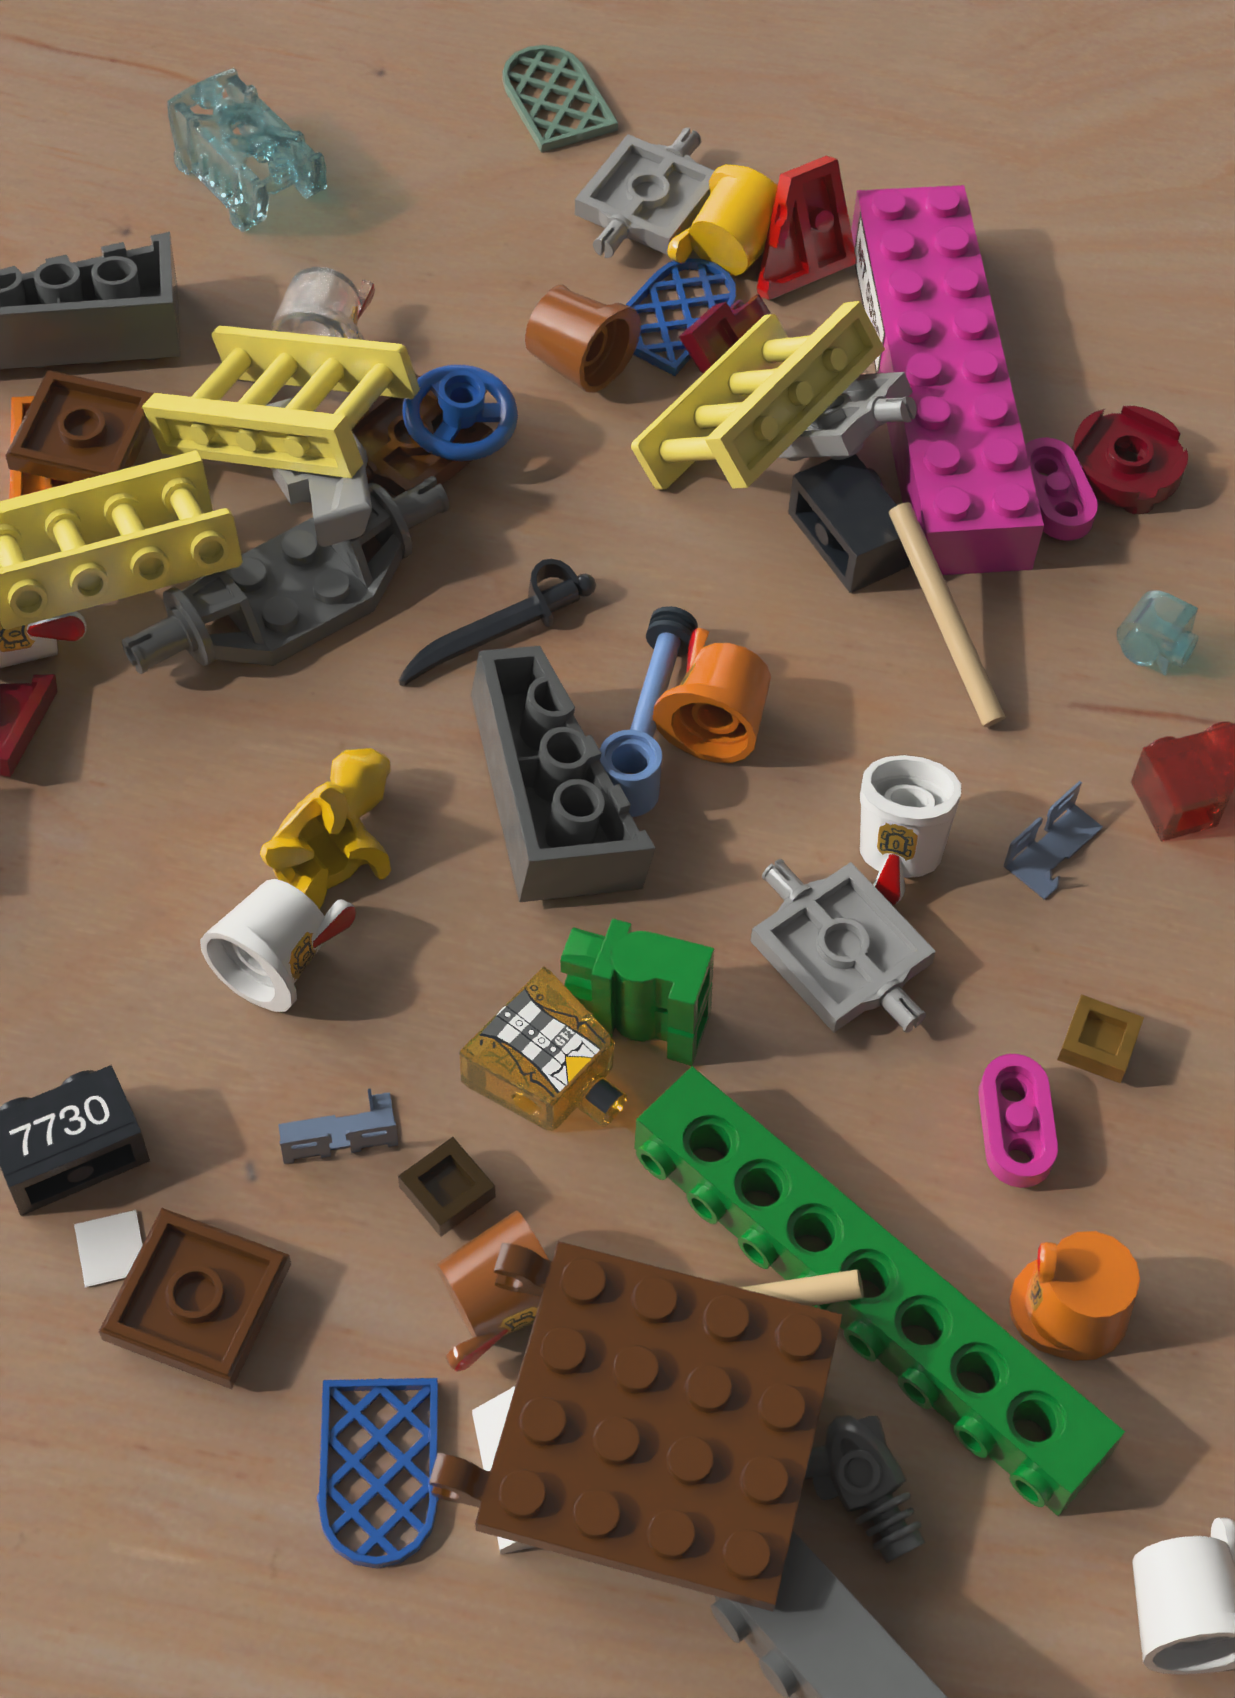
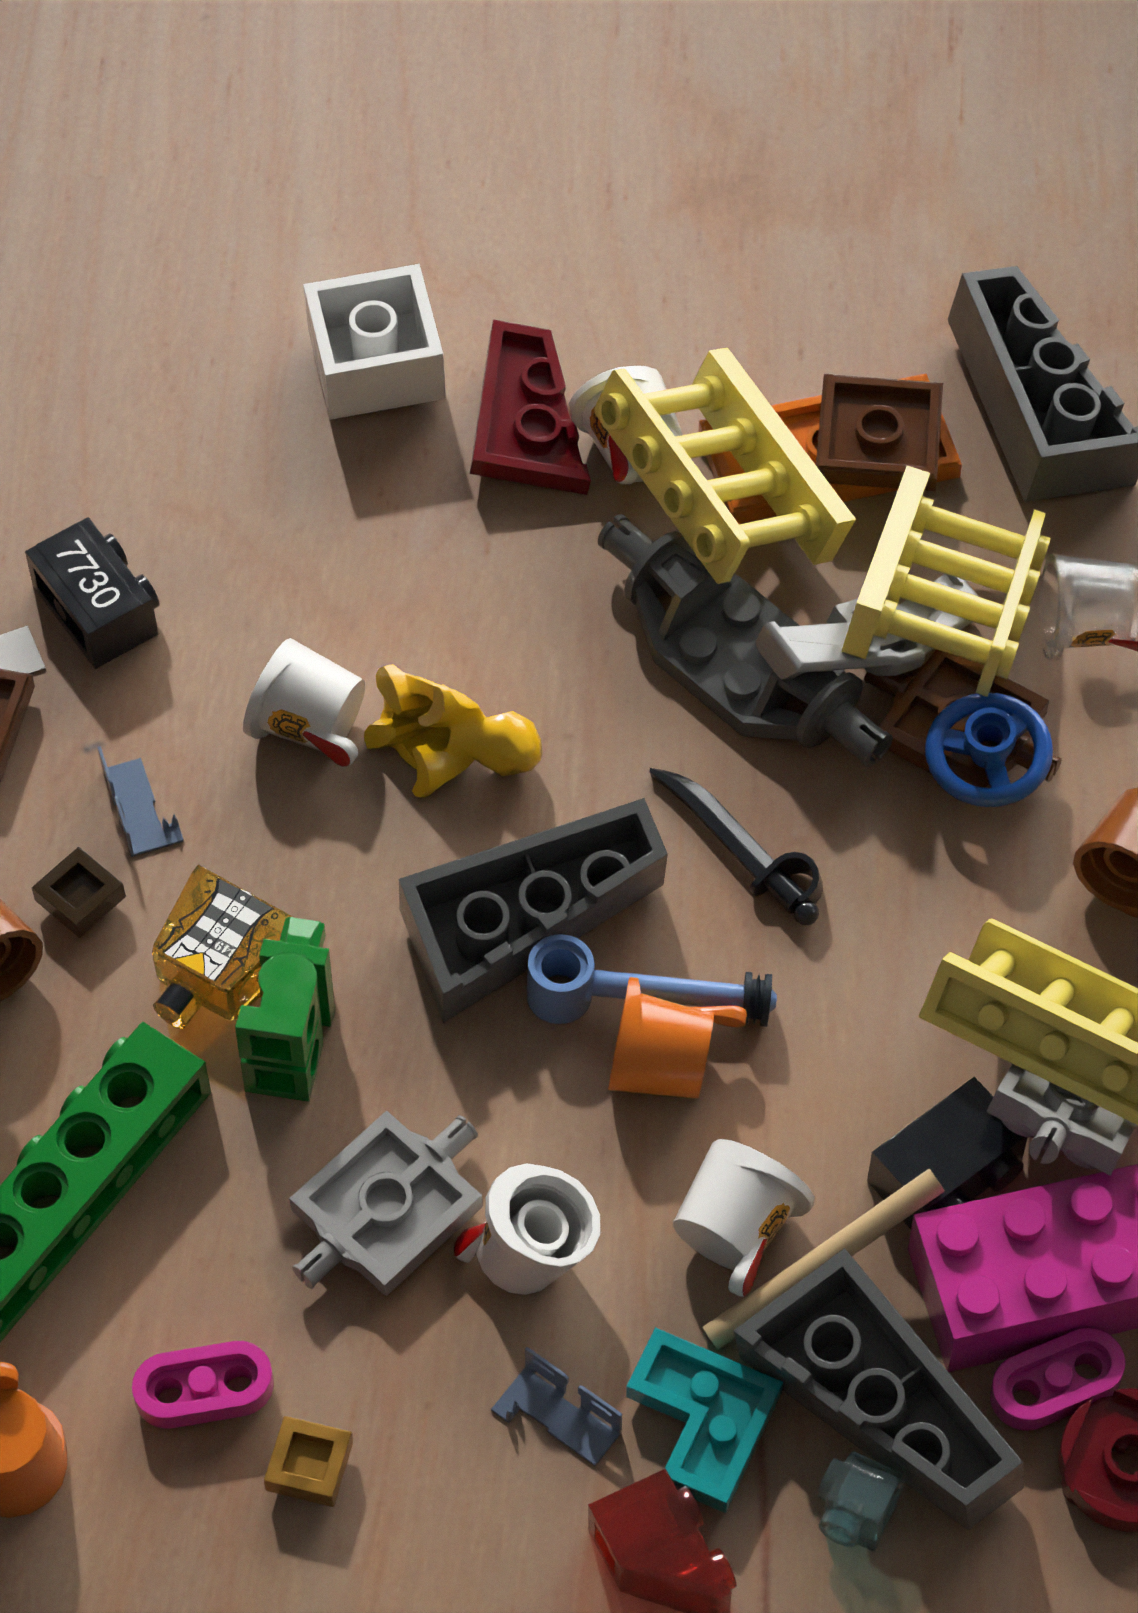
camera: 85 degrees right, 0 degrees up
(891, 667) = (739, 1208): none -> white hat
(1067, 592) = (881, 1388): none -> dark grey wedge
(1072, 715) = (722, 1410): none -> teal plate

